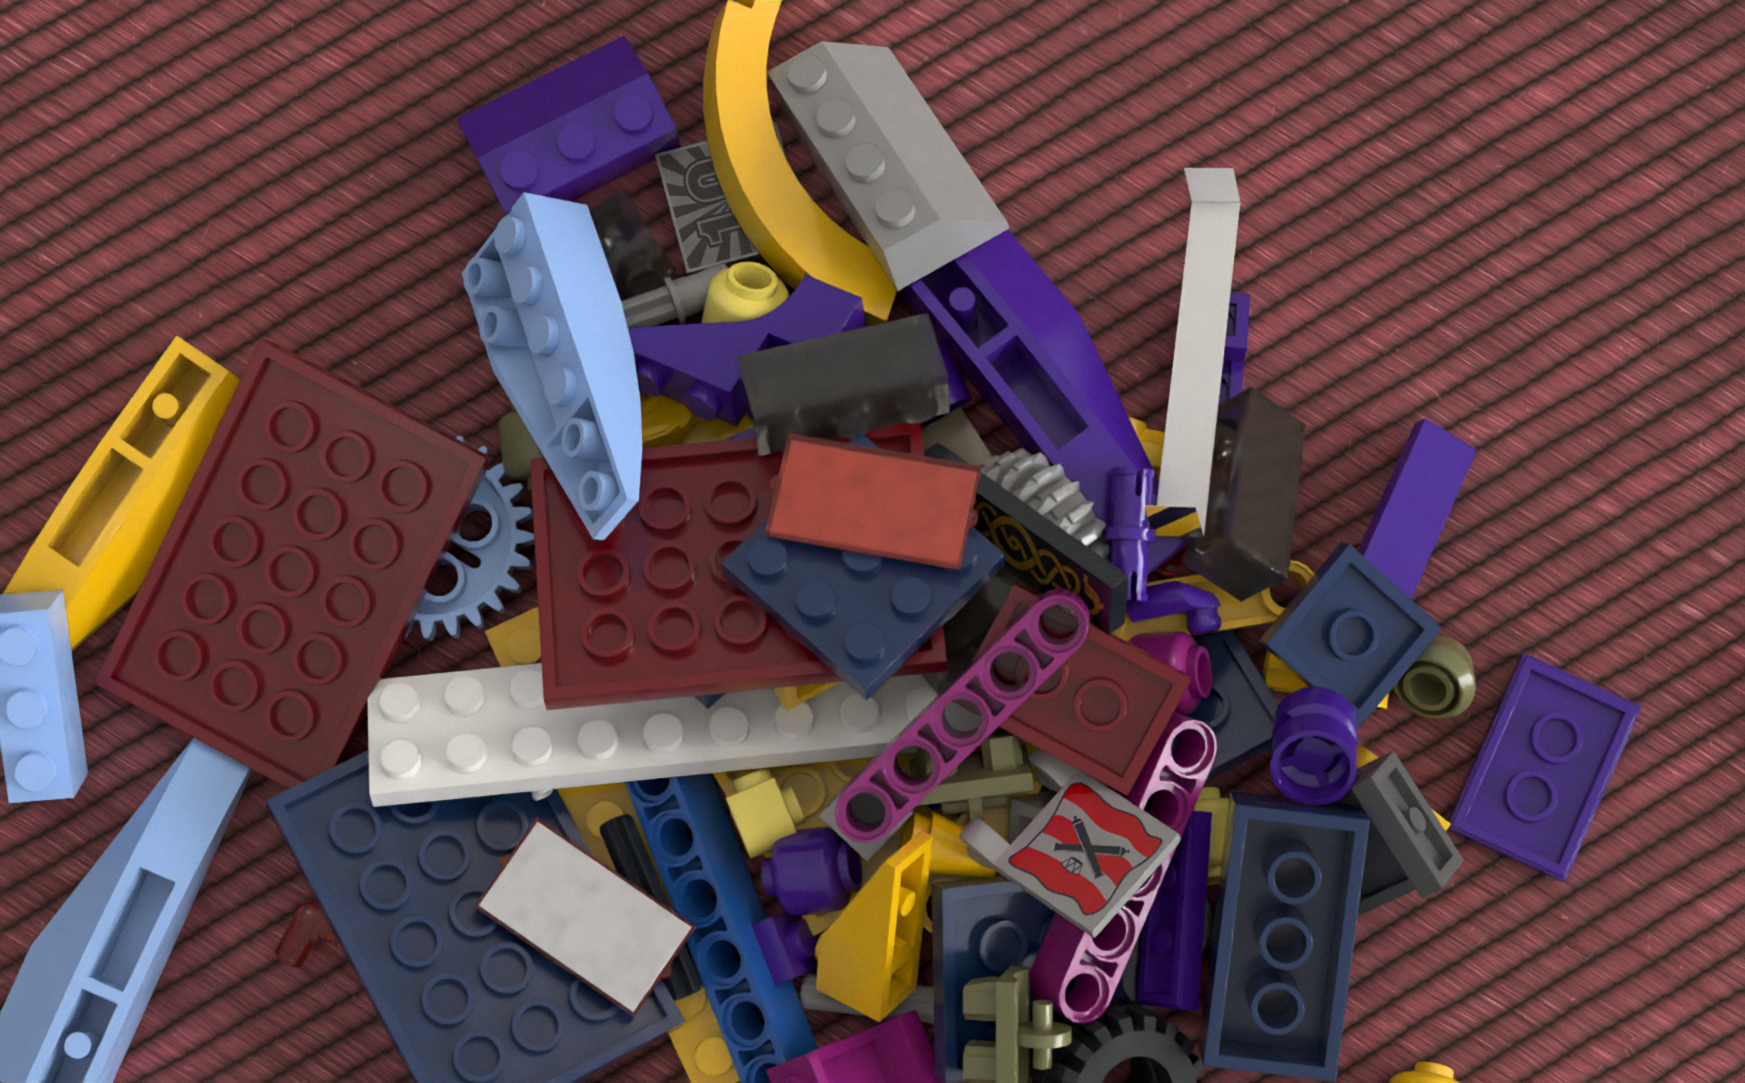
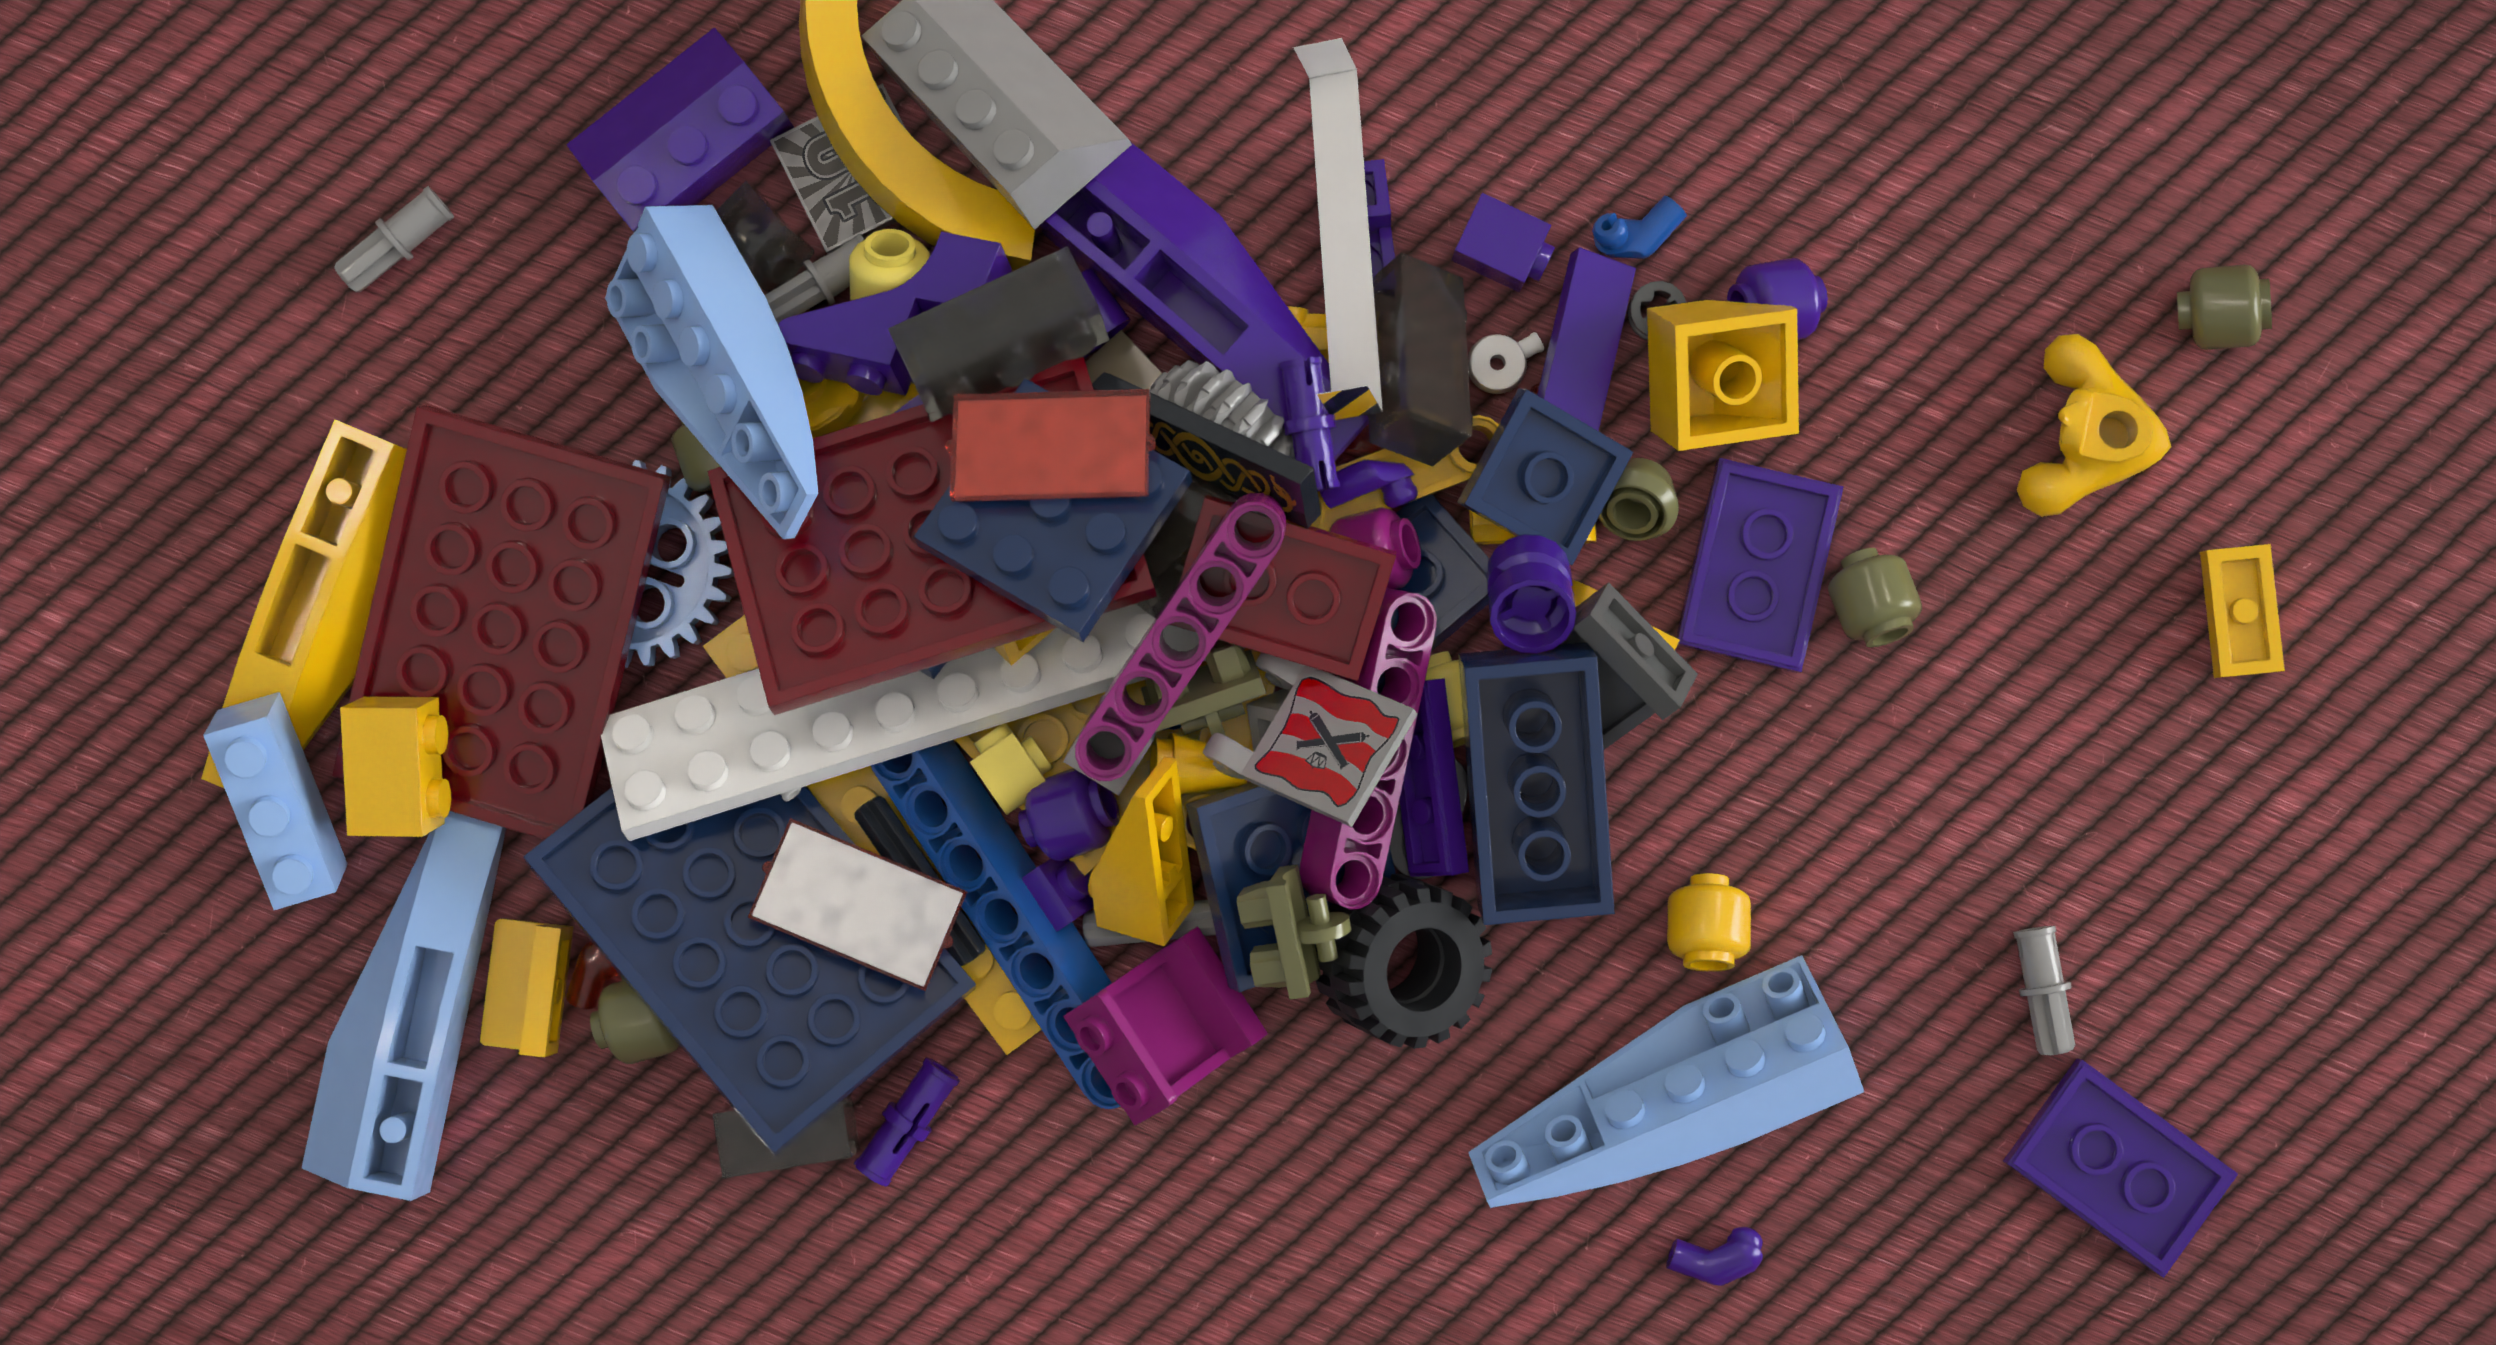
camera: 10 degrees left, 5 degrees up
(159, 686) = (394, 766): none -> yellow brick
(237, 932) = (526, 986): none -> yellow panel
(268, 176) = (393, 240): none -> light grey axle
(332, 992) = (629, 1026): none -> olive head
(1338, 512) = (1512, 355): none -> white piece
(1352, 400) = (1504, 244): none -> dark purple brick
(1479, 480) = (1644, 297): none -> dark grey bush
(1482, 420) = (1637, 237): none -> blue arm
(1544, 569) = (1722, 372): none -> yellow slope
(1609, 511) = (1787, 284): none -> dark purple head
(1652, 822) = (1875, 597): none -> olive head

